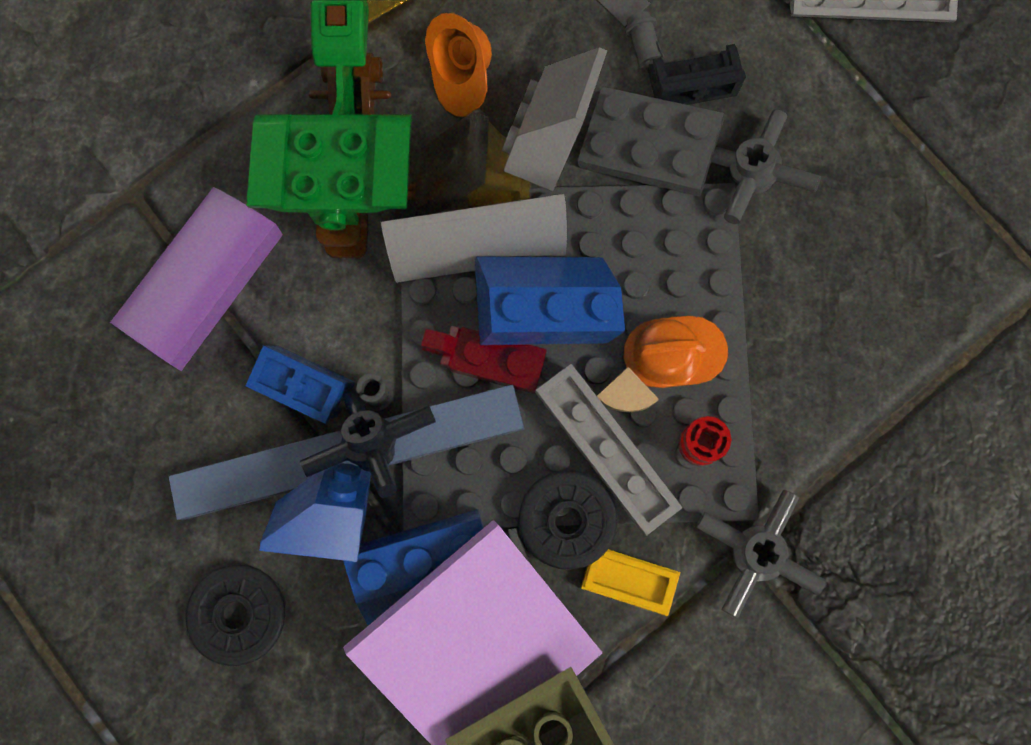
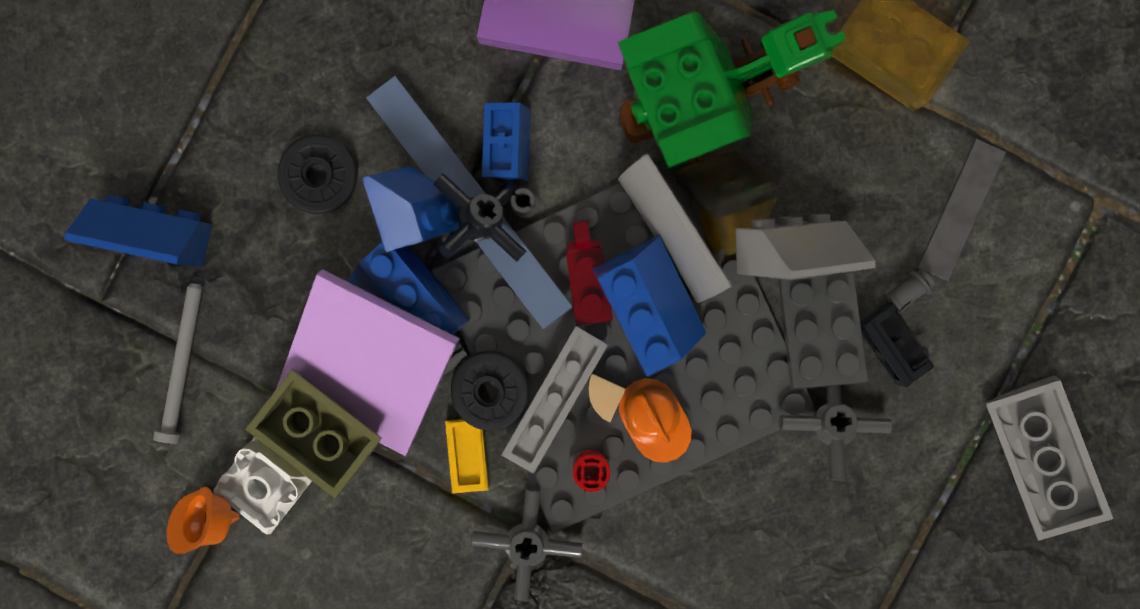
camera: 70 degrees right, 10 degrees up
(458, 62) = (823, 147): orange piece -> none

